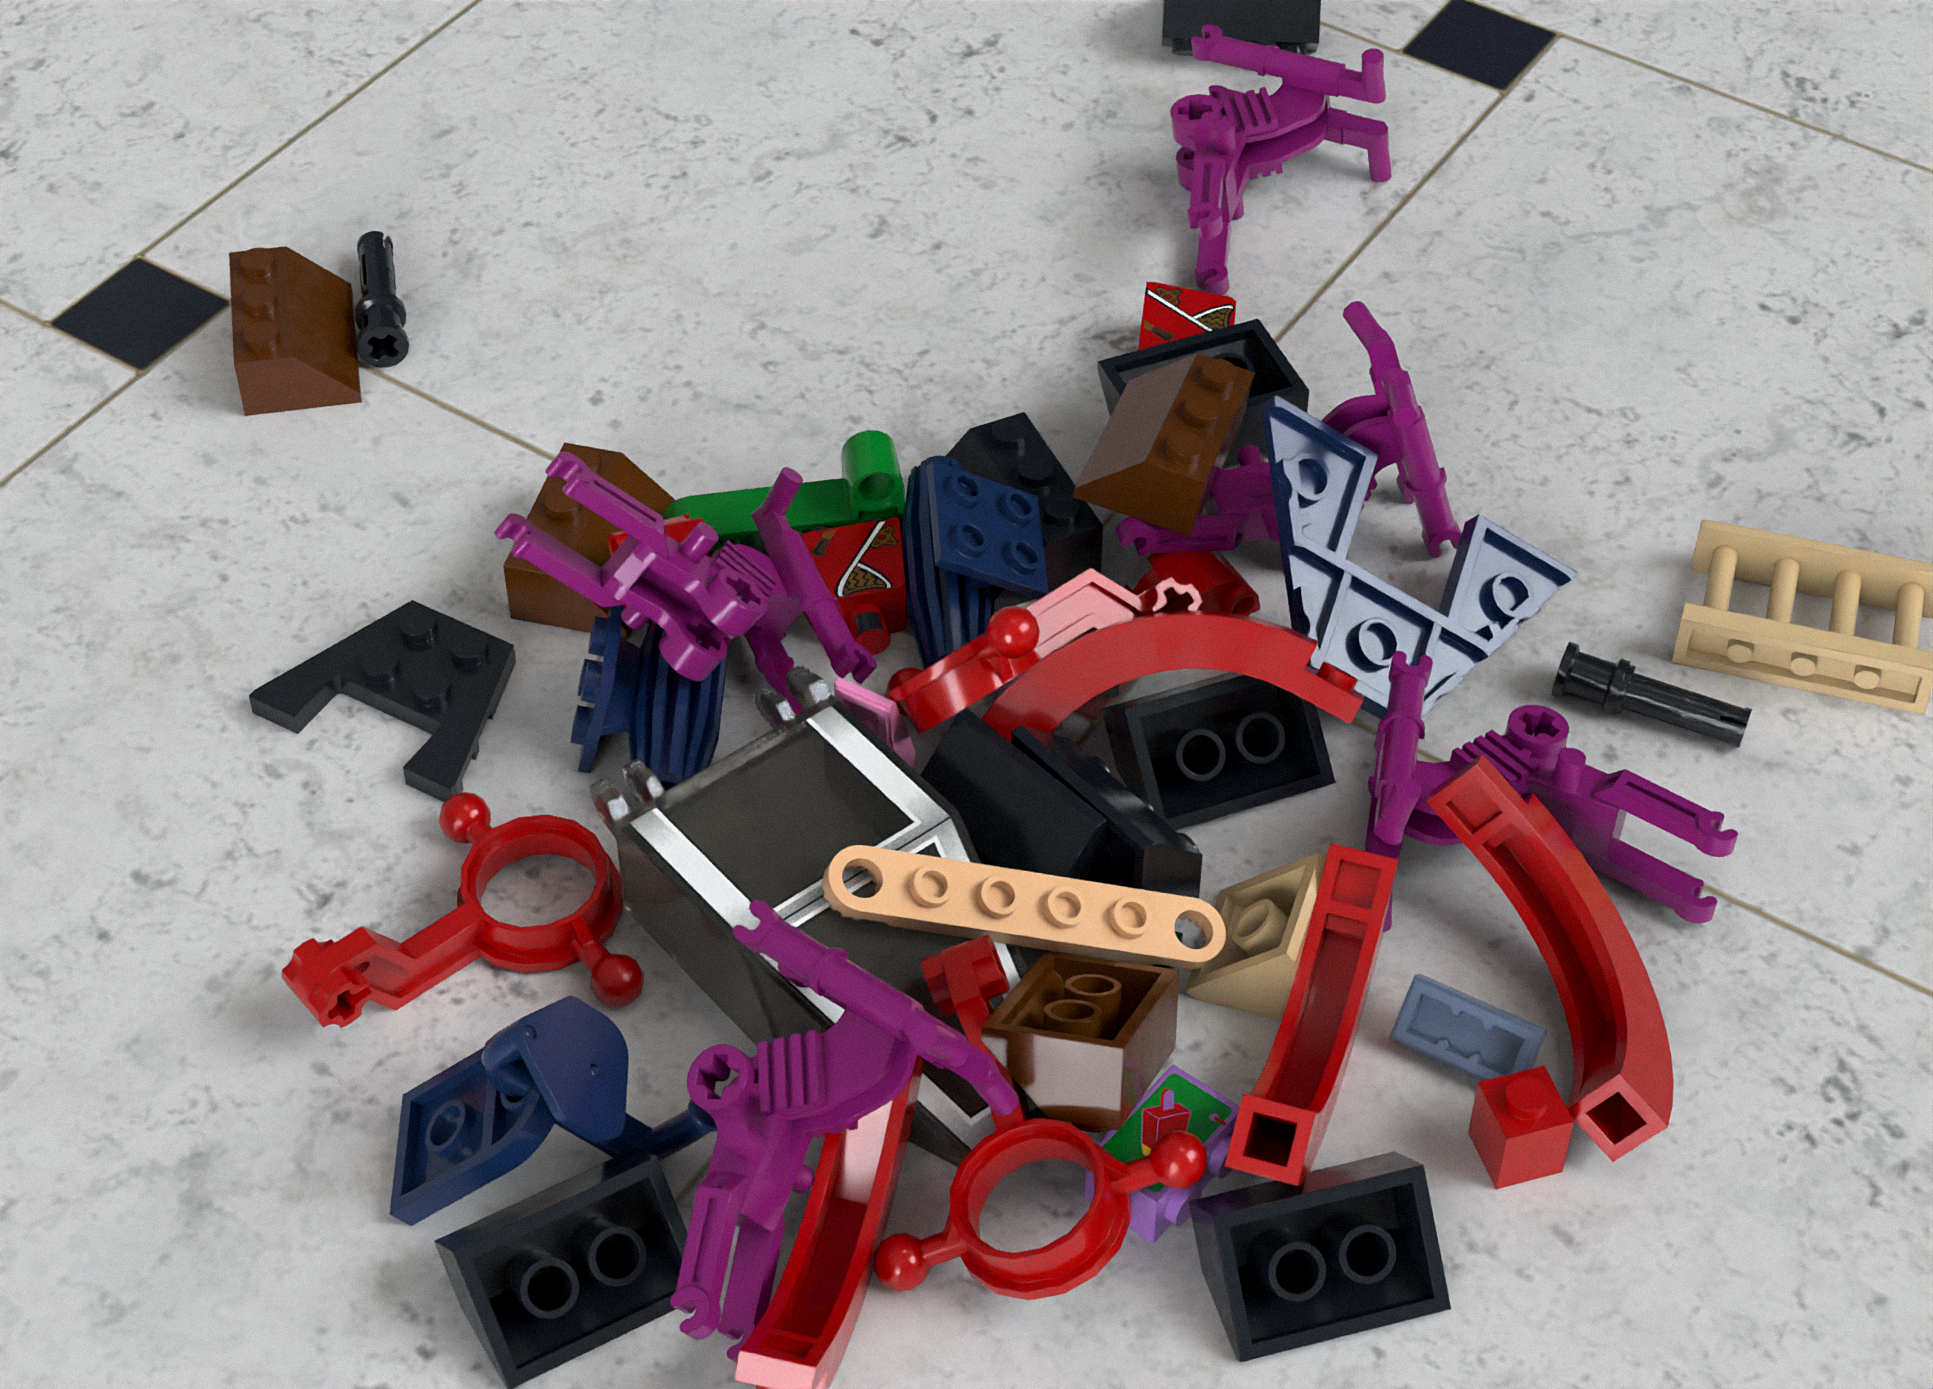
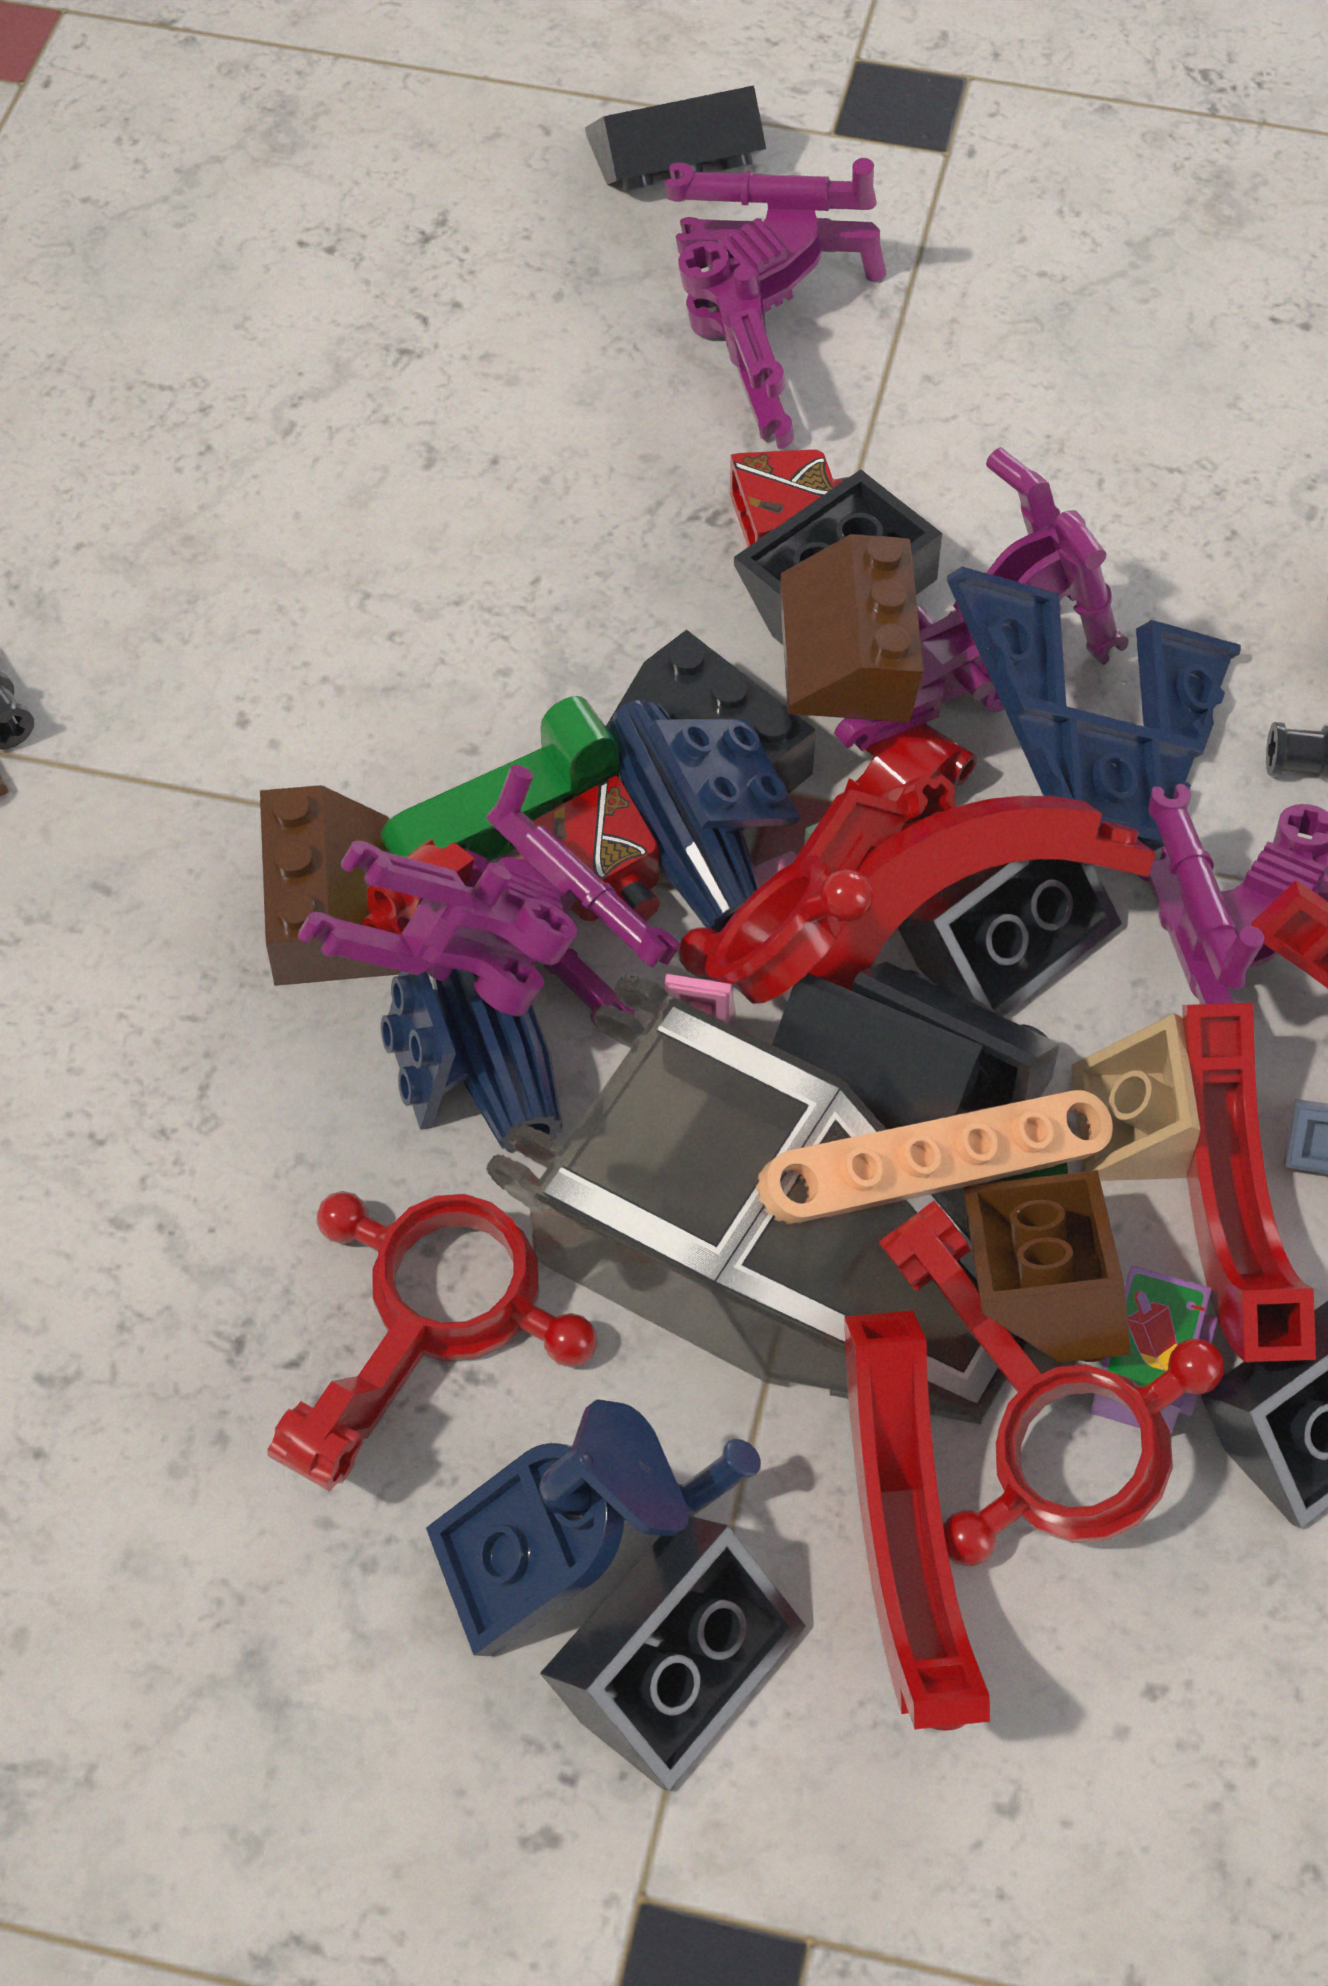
camera: 20 degrees left, 10 degrees up
(414, 669) = (214, 1072): black wing -> none
(785, 1099) = (841, 1421): magenta piece -> none

